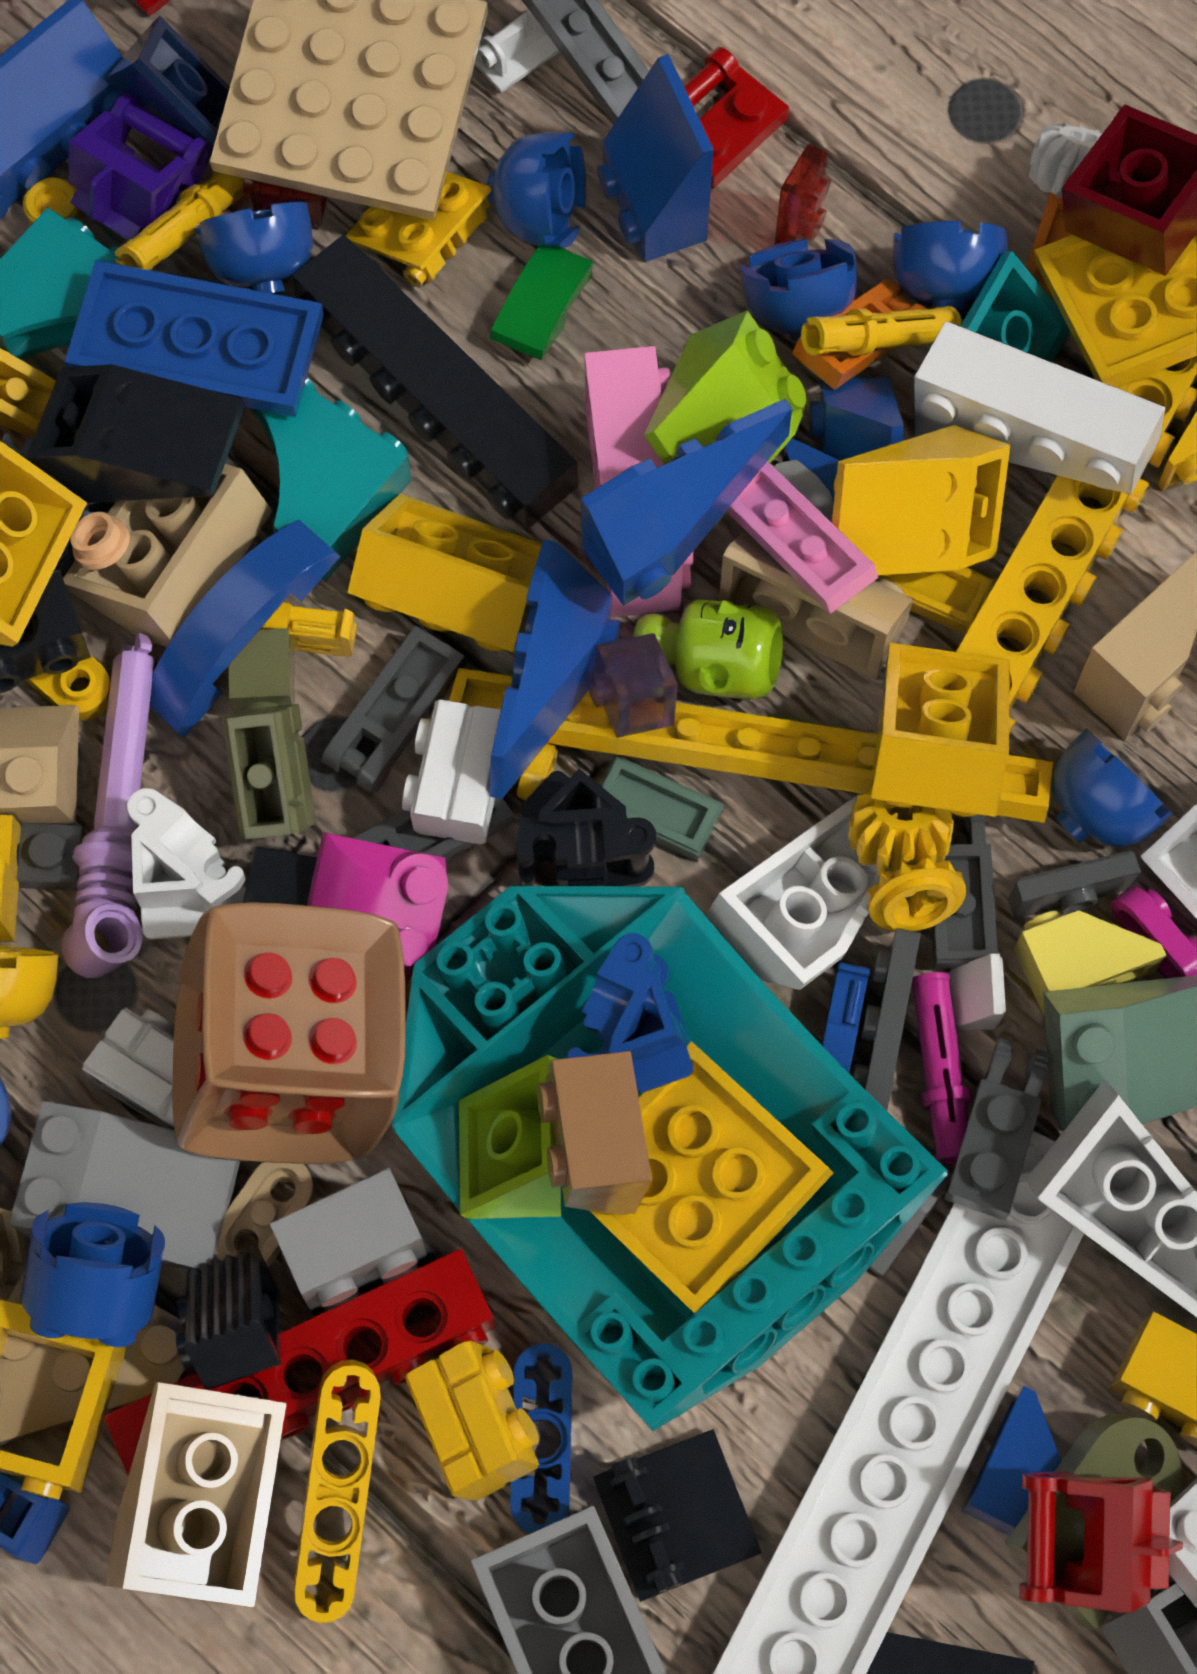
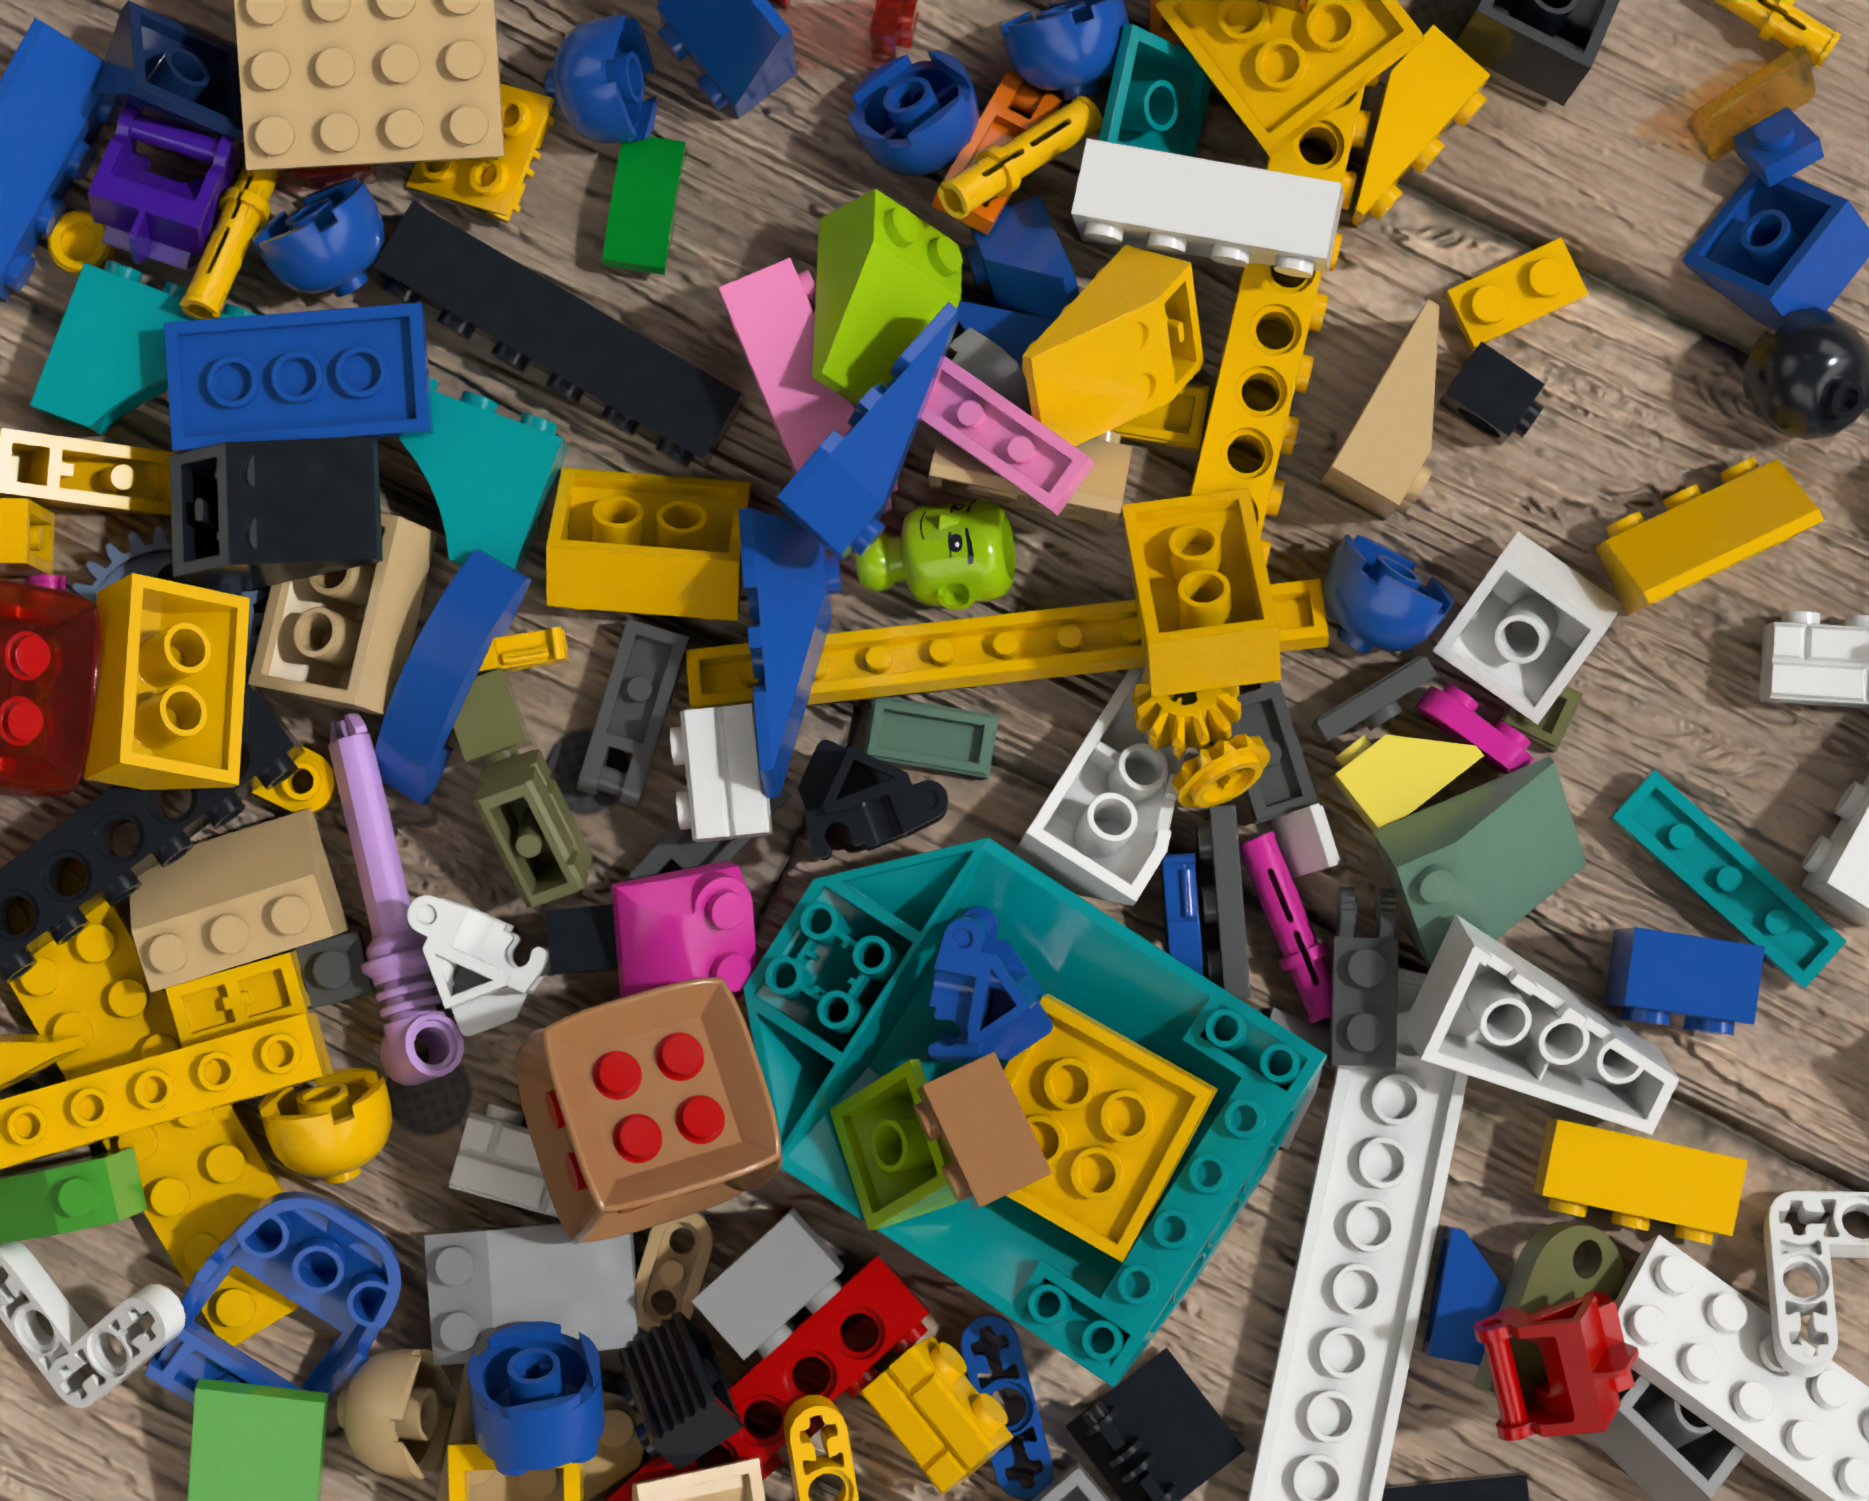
camera: 15 degrees left, 15 degrees up
(99, 540) = (264, 632): light nougat plate -> none
(537, 771) = (804, 744): yellow tile -> none
(634, 685) = (873, 627): clear purple brick -> none

